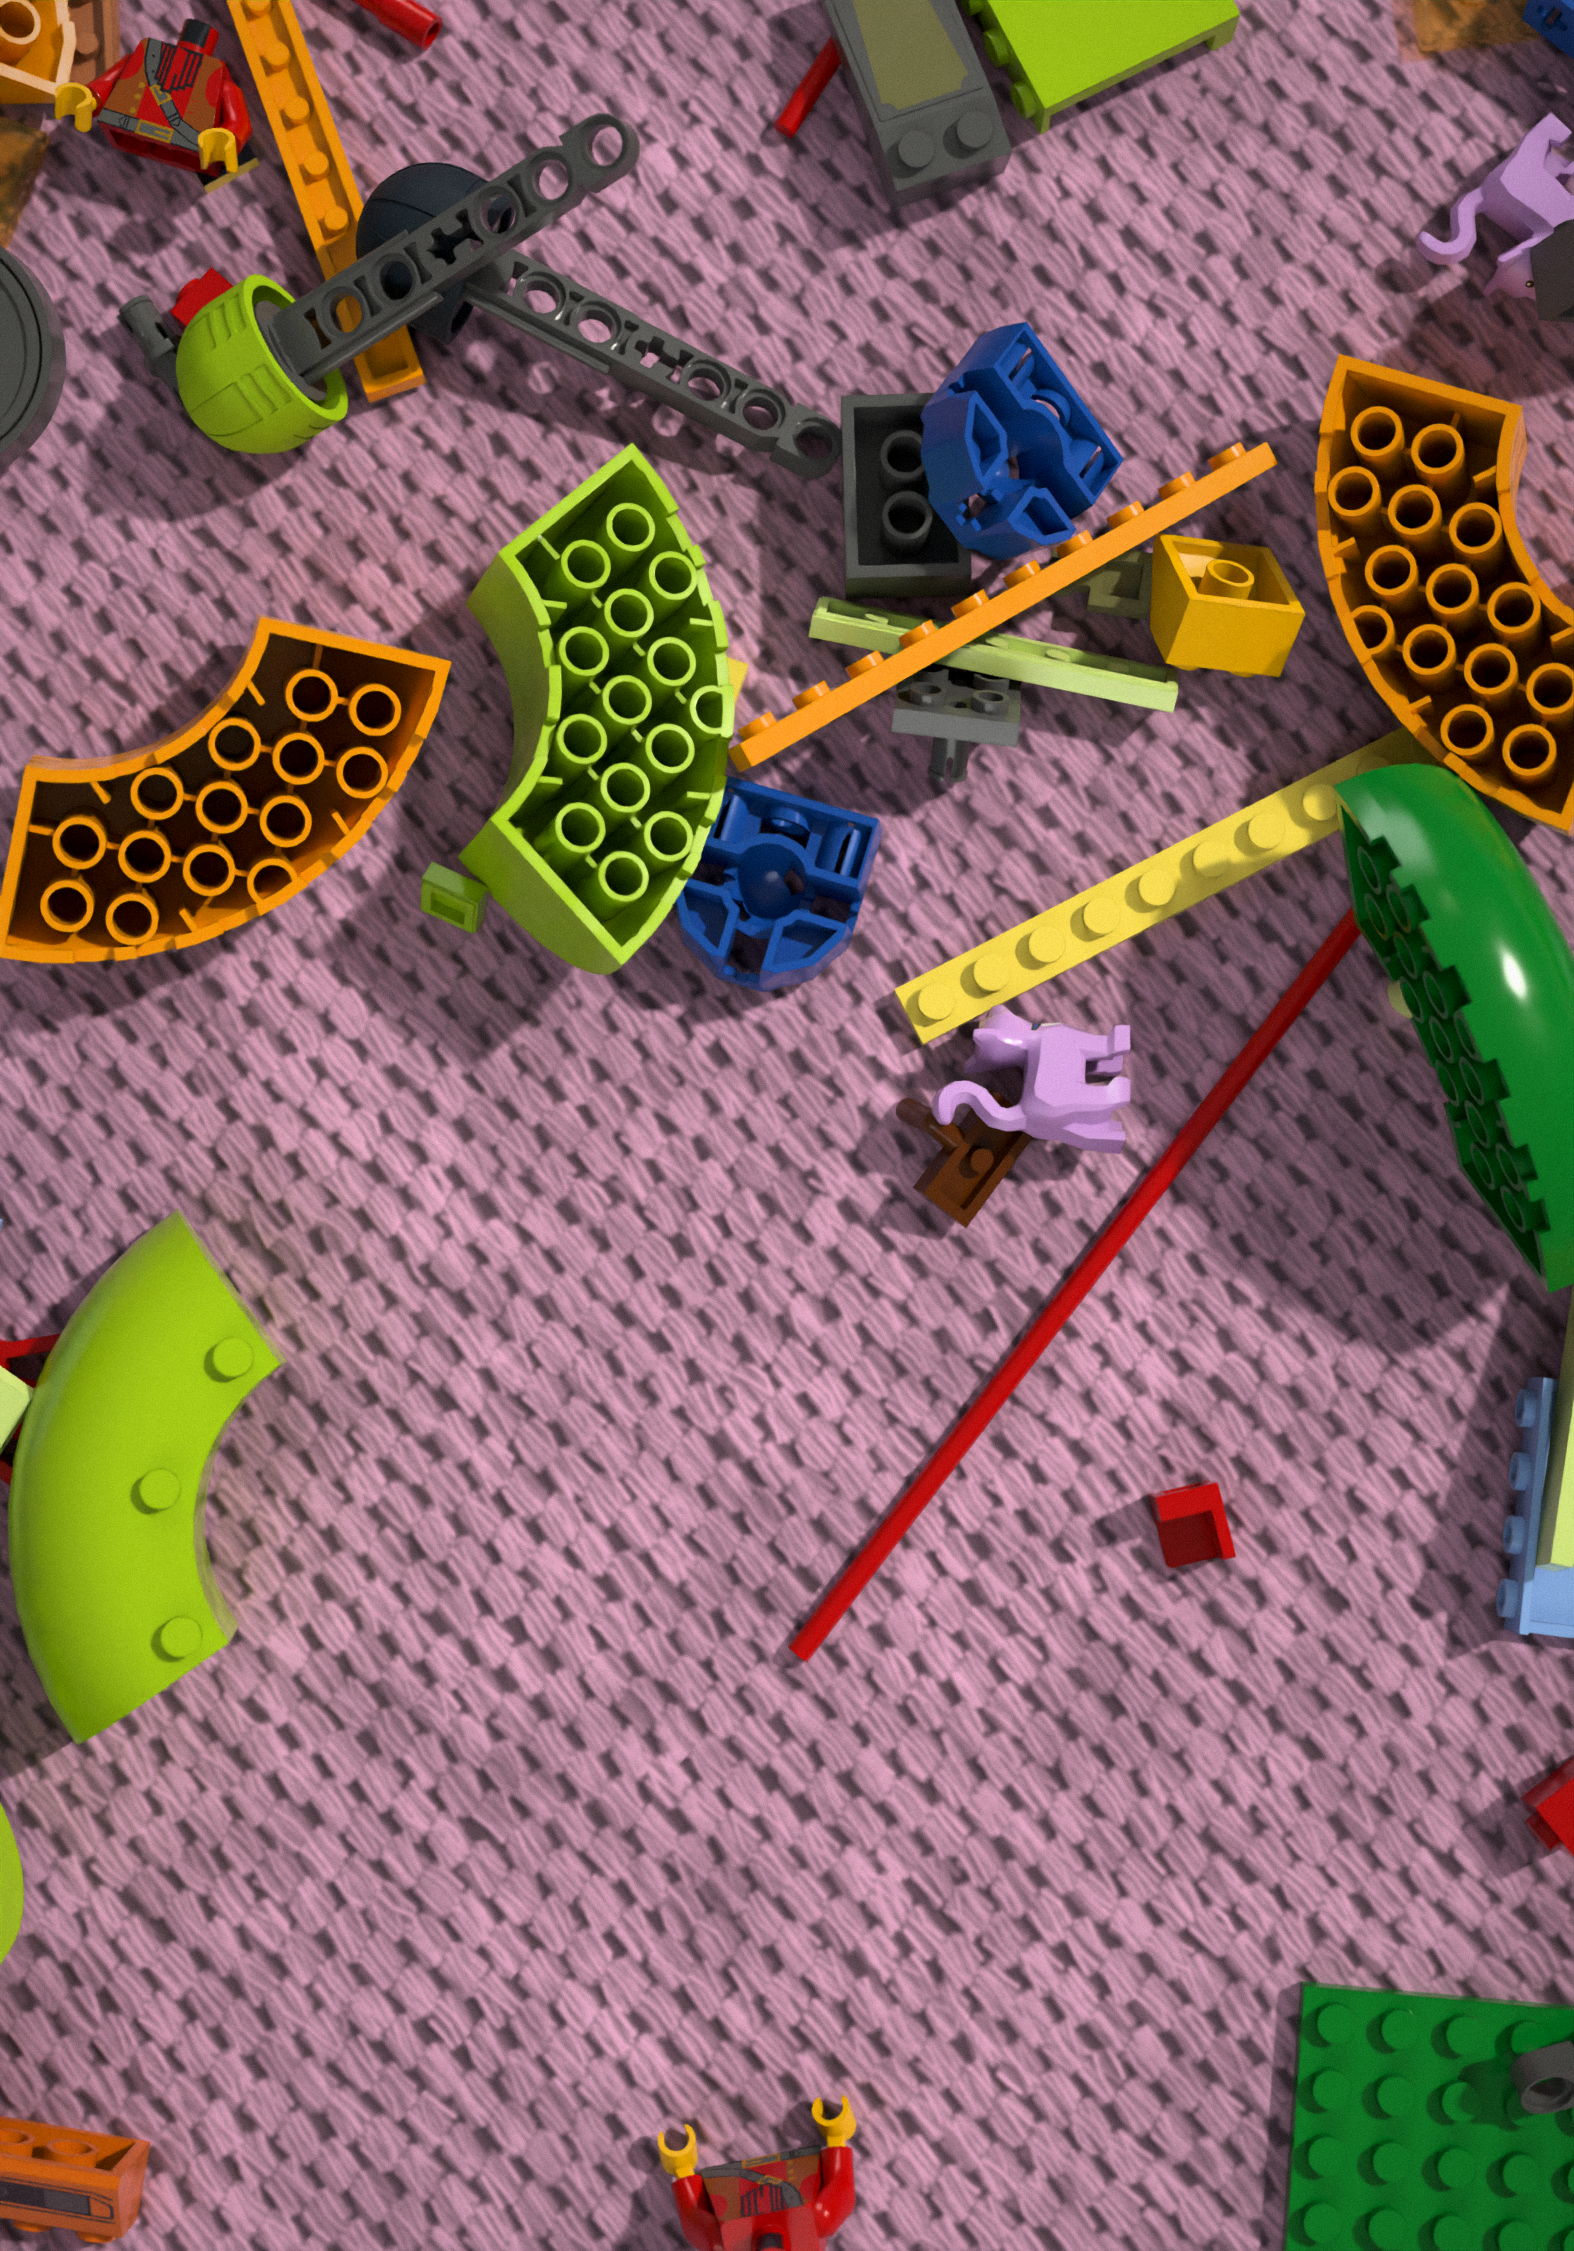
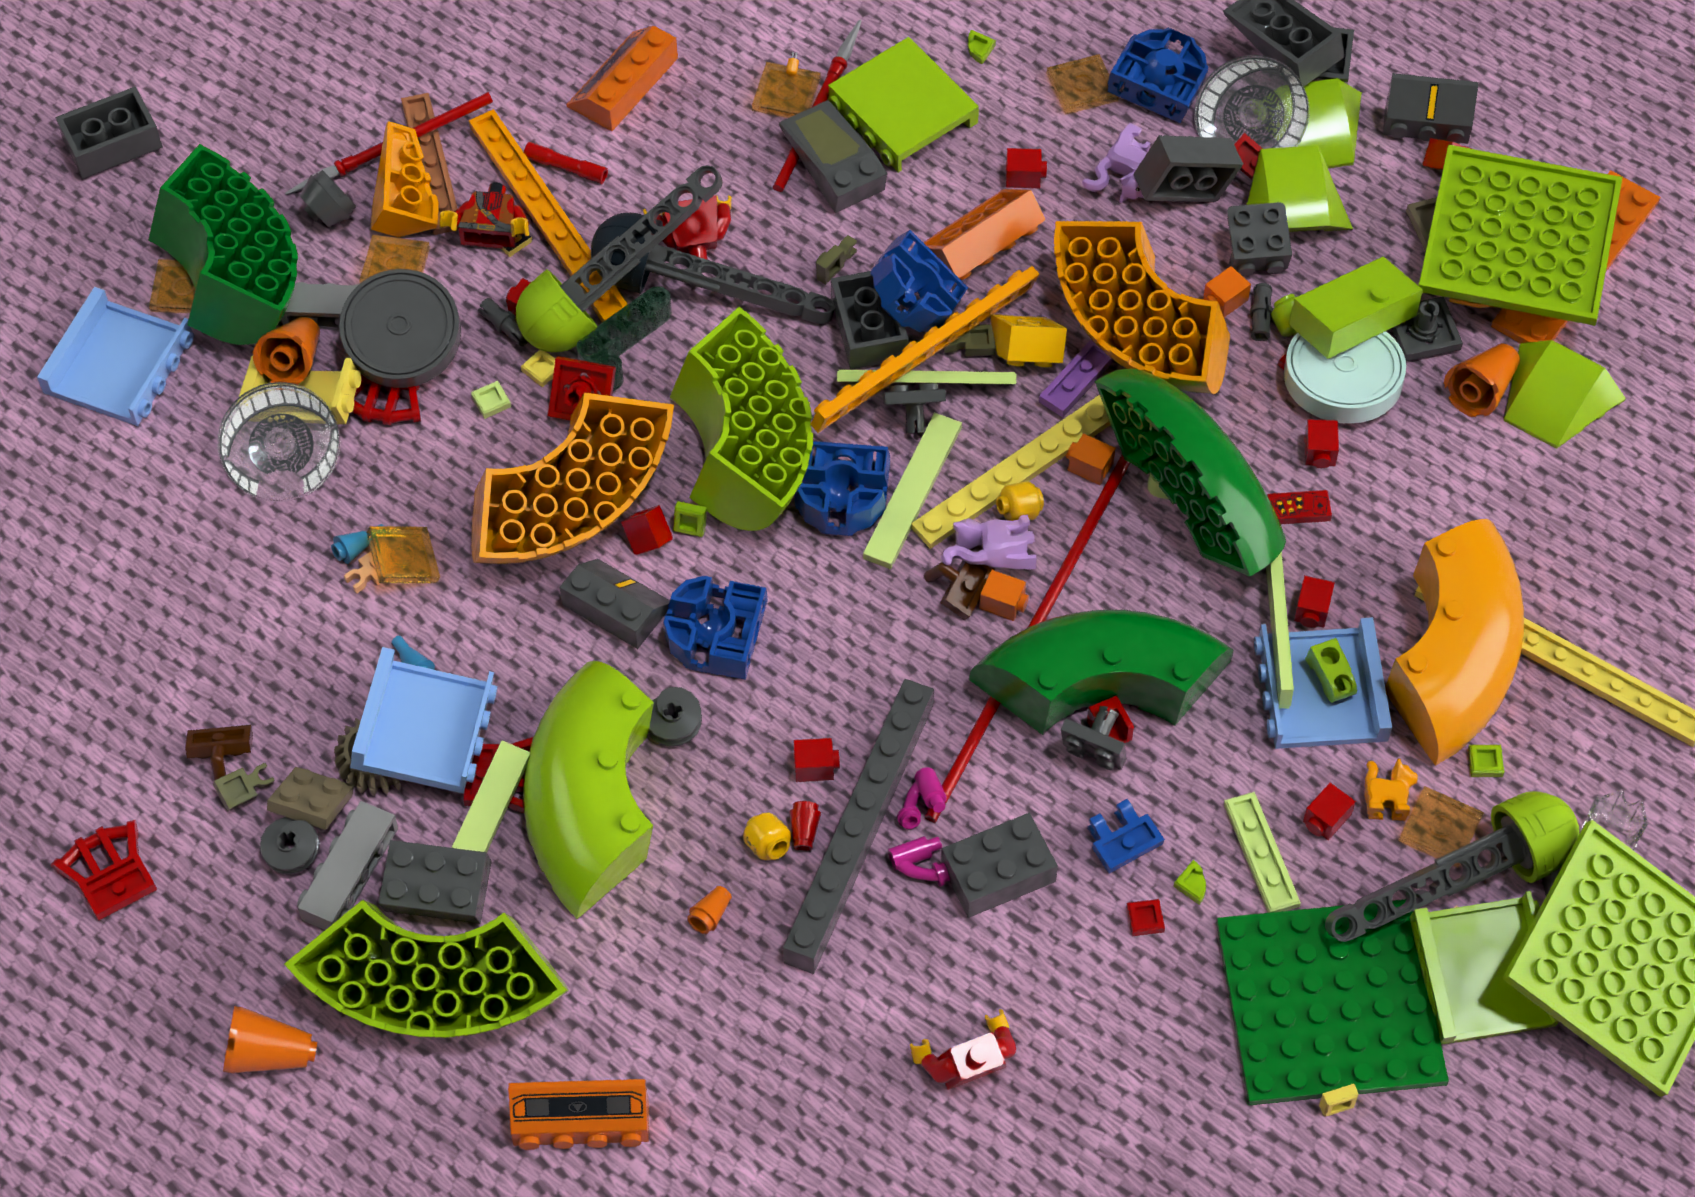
camera: 15 degrees left, 25 degrees down
(111, 533) = (491, 399): none -> yellowish green tile
(225, 478) = (539, 367): none -> light yellow tile
(275, 1050) = (613, 601): none -> dark grey slope
(284, 575) = (568, 372): none -> red plate
(323, 1371) = (687, 712): none -> dark grey piece
(334, 1773) = (708, 911): none -> orange cone
(365, 904) = (647, 530): none -> red panel
(410, 438) = (627, 328): none -> clear green beam
(431, 1162) = (727, 654): none -> blue connector
(471, 1641) = (767, 836): none -> yellow head
(550, 1624) = (804, 824): none -> red cone
(597, 1492) = (815, 760): none -> red brick
(605, 219) = (701, 229): none -> red torso
(652, 1659) = (858, 827): none -> dark grey brick
(750, 1725) = (907, 854): none -> dark pink plant
(809, 1610) = (930, 789): none -> dark pink plant
(857, 337) = (833, 261): none -> olive plate
(906, 1798) = (999, 865): none -> dark grey brick
(914, 908) = (912, 490): none -> yellowish green tile
(1044, 1196) = (1003, 595): none -> orange brick
(1122, 986) = (1020, 500): none -> yellow head
(1152, 1578) = (1095, 741): none -> dark grey plate
(1166, 1790) = (1128, 842): none -> blue plate
(1167, 1949) = (1145, 917): none -> red tile
(1182, 323) = (986, 231): none -> orange slope
(1210, 1390) = (1099, 656): none -> green brick
(1275, 1892) = (1192, 882): none -> lime tile
(1286, 911) = (1090, 458): none -> orange brick
(1294, 716) = (1075, 379): none -> medium lavender plate
(1304, 180) = (1025, 168): none -> red brick
(1424, 1857) = (1262, 853): none -> yellowish green tile

